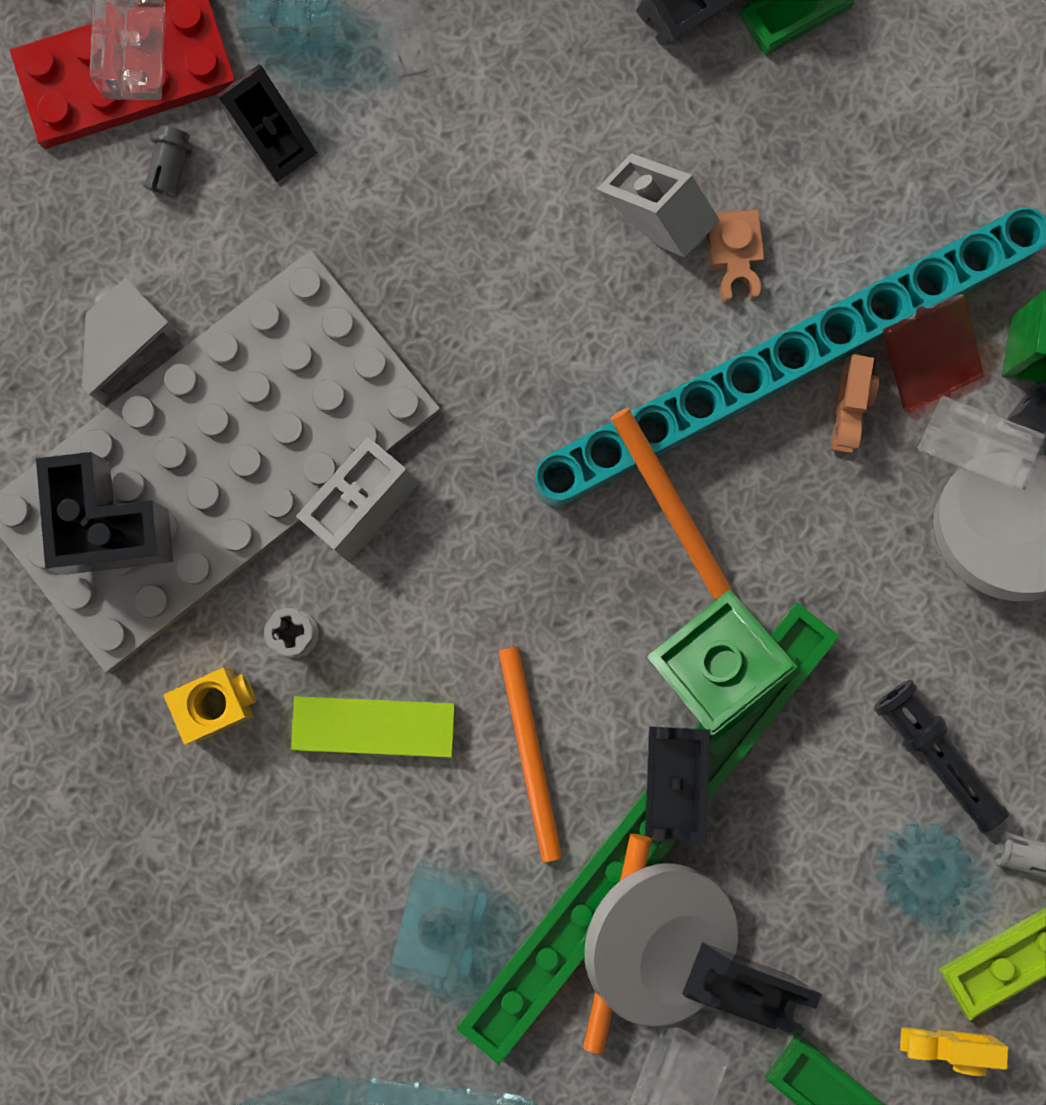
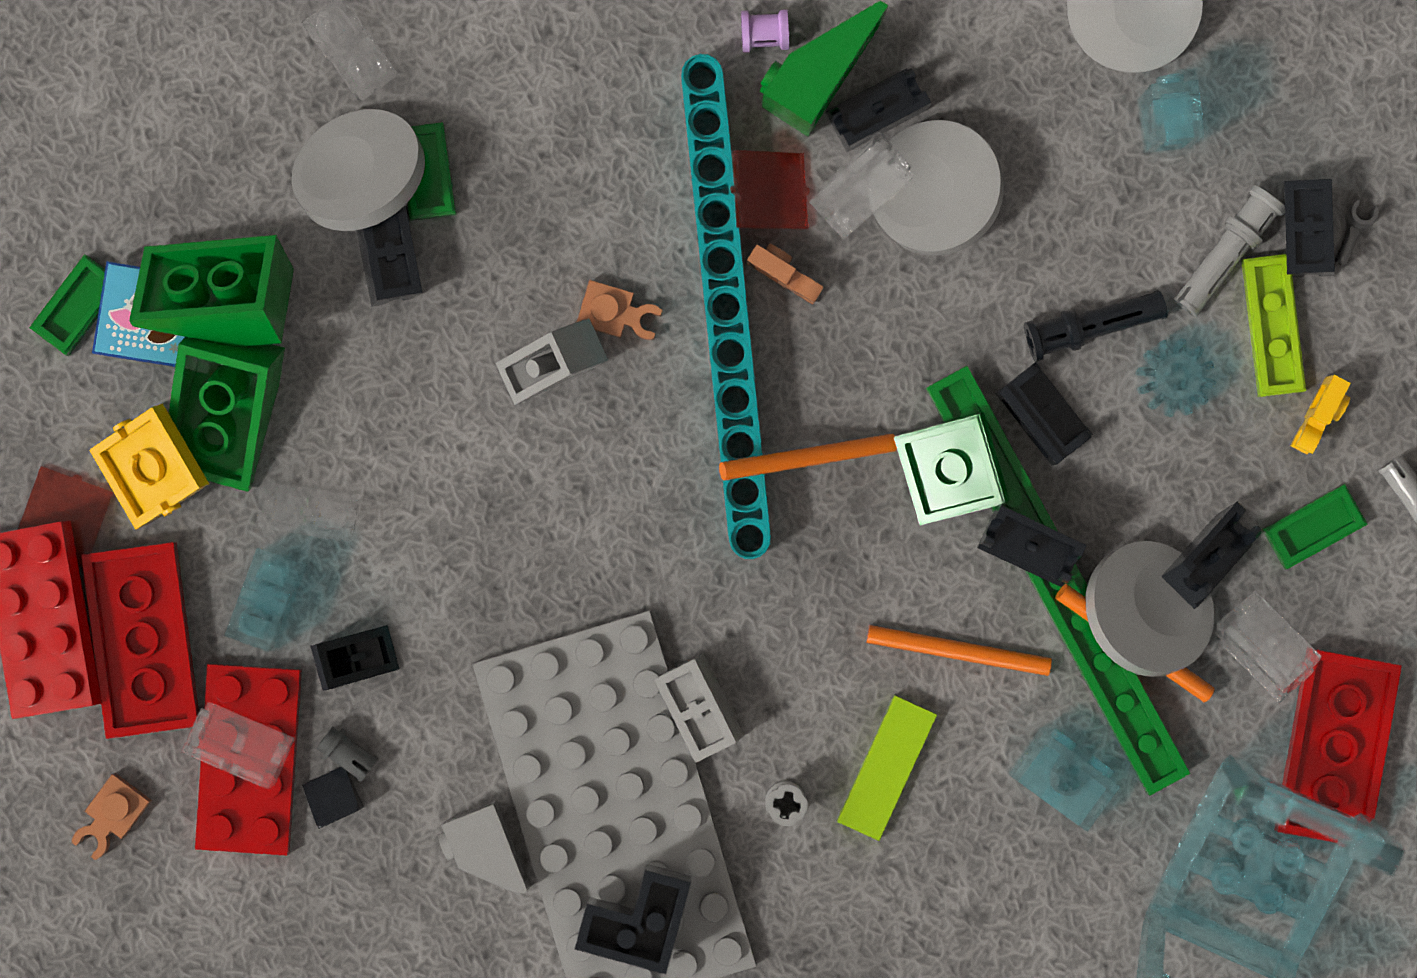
camera: 65 degrees left, 5 degrees up
(115, 166) = (332, 797): none -> black slope
(188, 710) = (818, 910): yellow brick -> none
(821, 739) = (1044, 414): none -> black hinge

